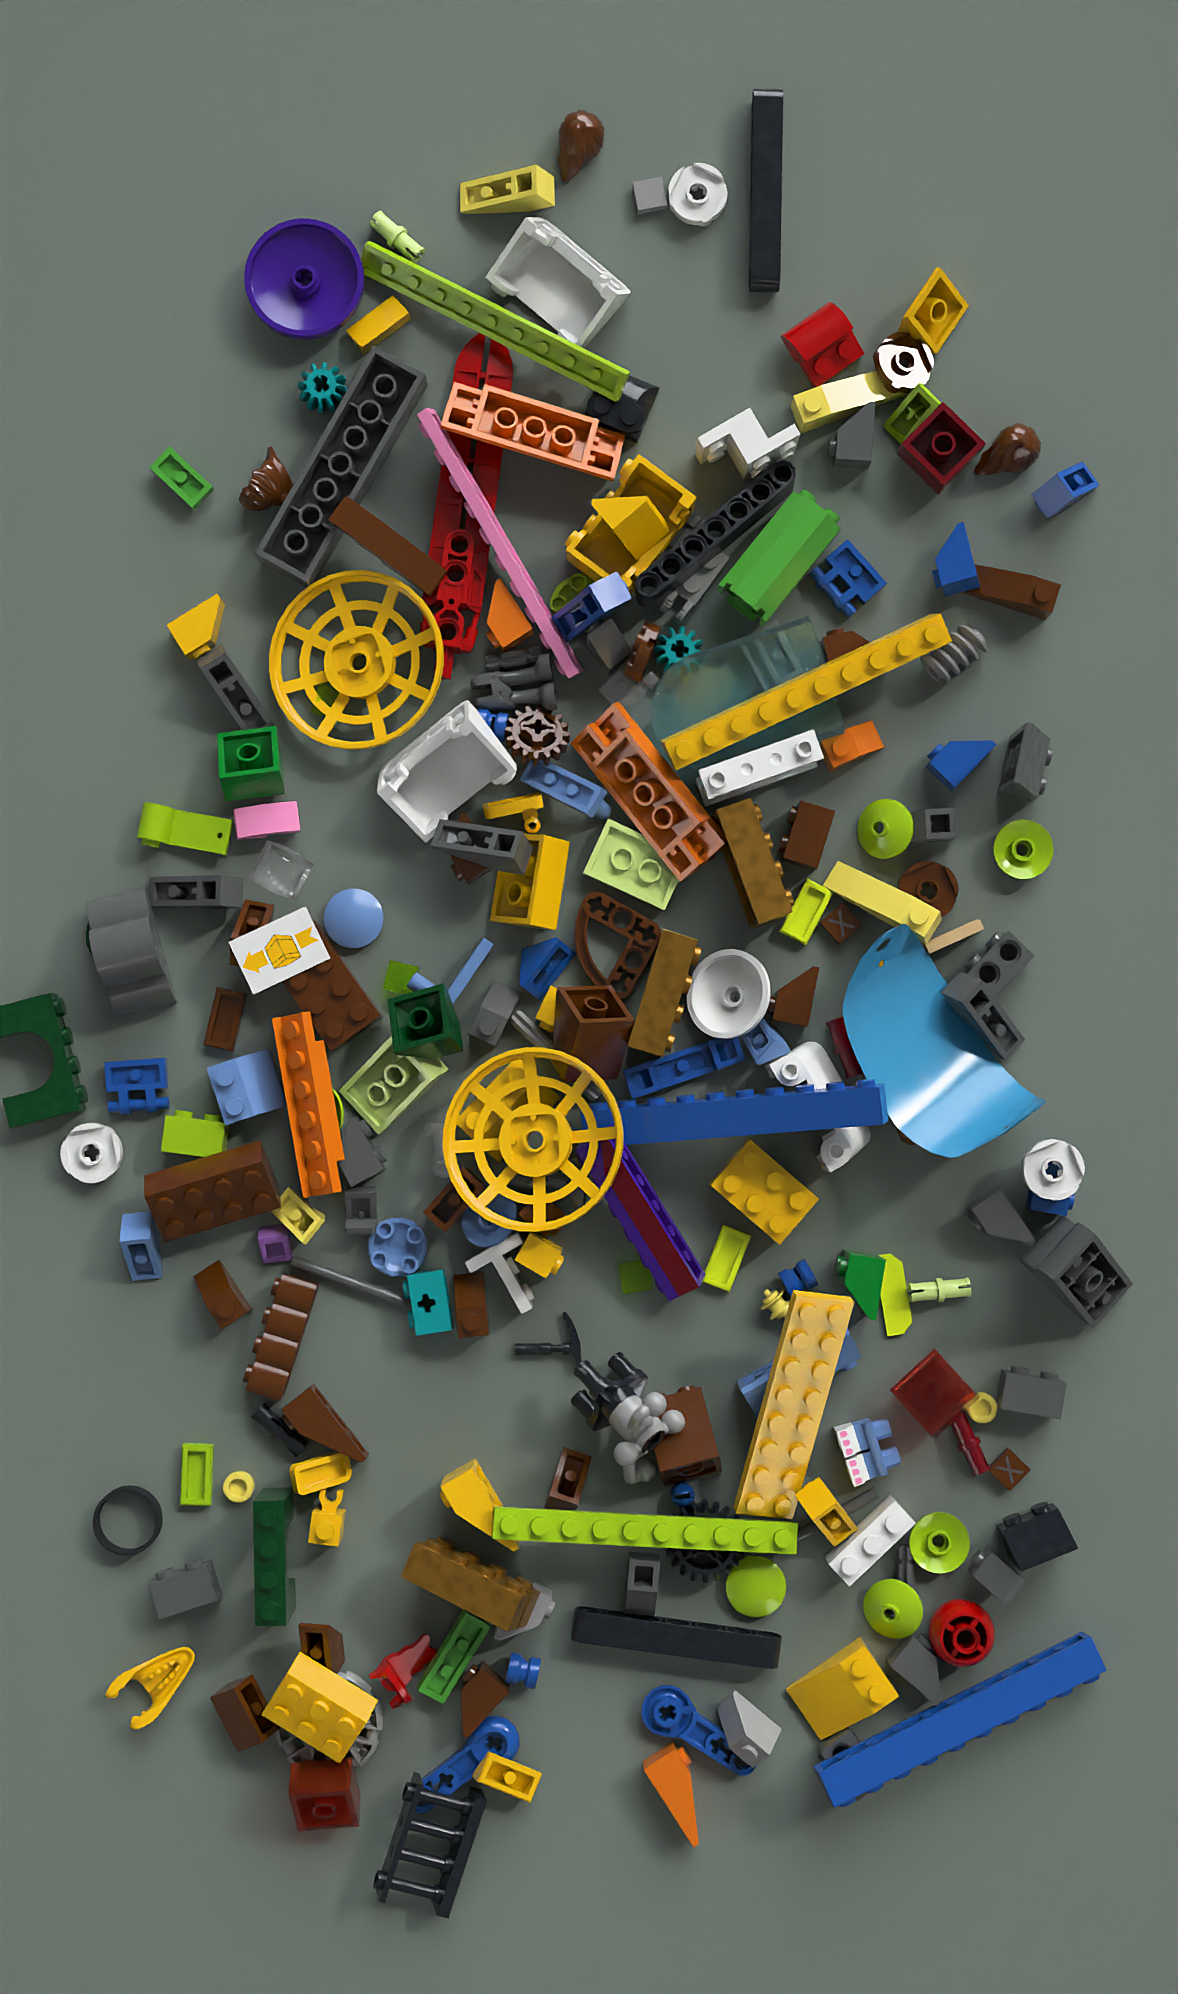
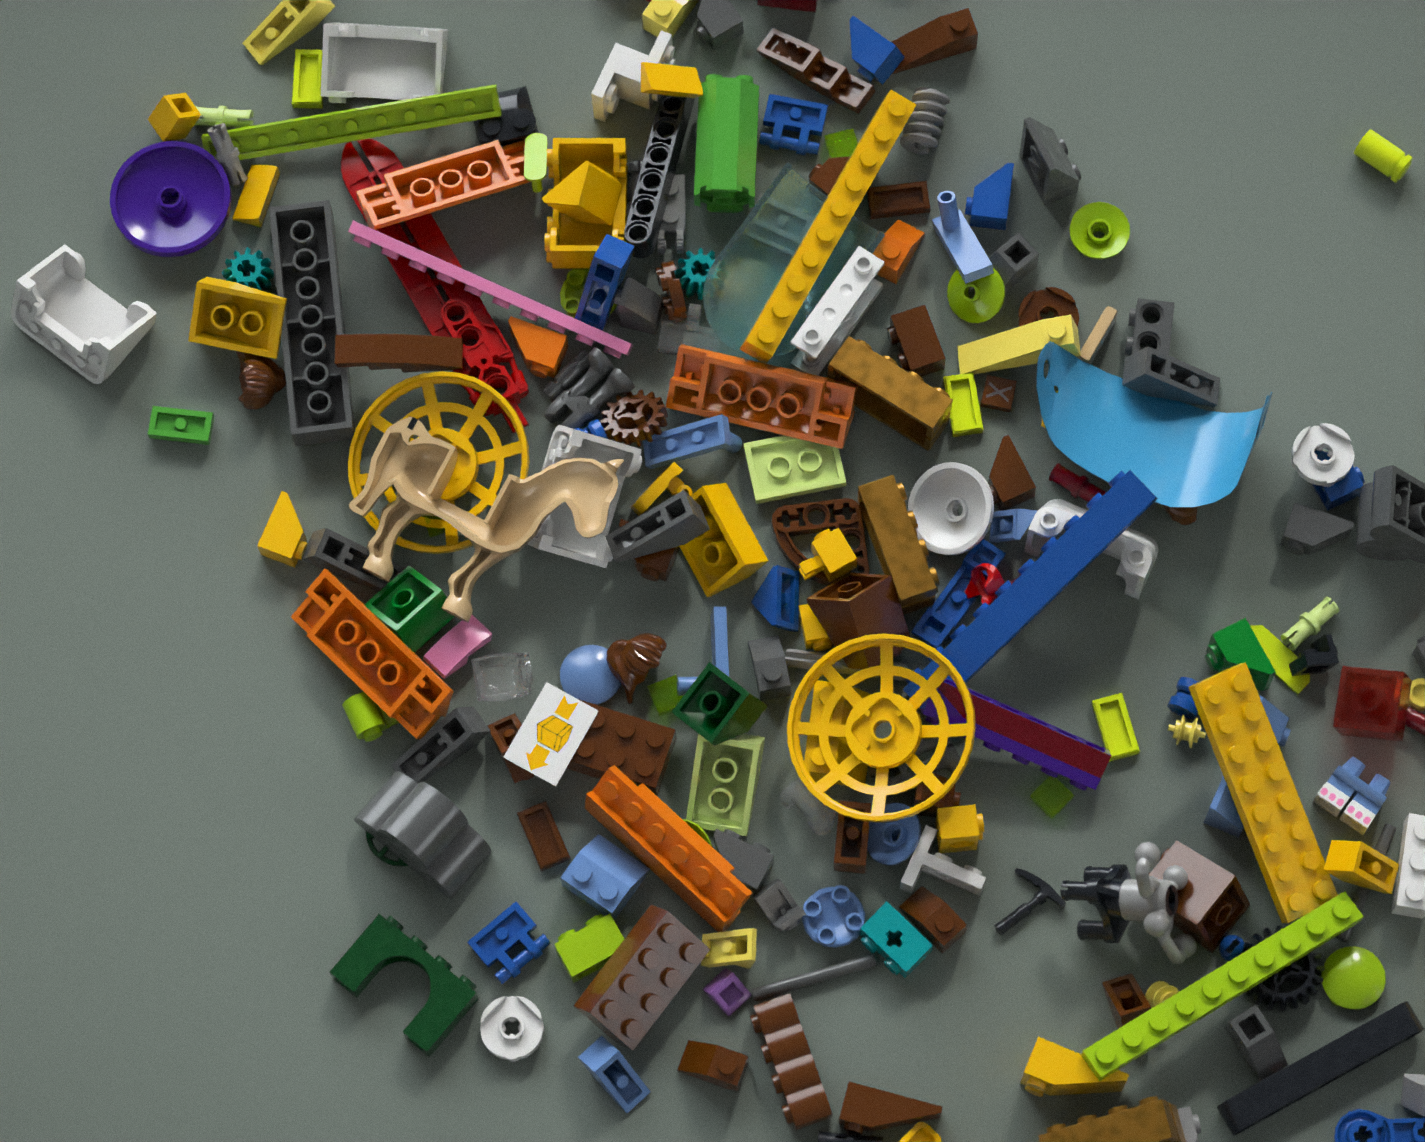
camera: 35 degrees left, 15 degrees down
(164, 325) = (77, 317): none -> white windscreen
(189, 782) = (372, 655): none -> orange slope
(281, 420) = (237, 317): none -> yellow slope
(328, 663) = (420, 475): none -> tan animal
(356, 209) = (174, 117): none -> yellow brick
(375, 273) = (227, 154): none -> light grey pin
(393, 934) = (633, 659): none -> reddish brown hair
(487, 253) = (307, 79): none -> neon yellow tile
(597, 1496) = (1159, 992): none -> light yellow wheel
(606, 964) = (830, 554): none -> yellow brick
(614, 459) = (535, 160): none -> piece
(712, 1081) = (983, 587): none -> red hair
(764, 1191) = (1103, 647): yellow brick -> none
(770, 472) = (670, 80): none -> yellow slope
(873, 624) = (841, 143): none -> clear neon green tile
(884, 704) = (898, 200): none -> reddish brown tile
(900, 545) = (815, 71): none -> reddish brown slope
(904, 779) = (960, 240): none -> medium blue piece
(927, 1325) = (1317, 659): none -> black bracket

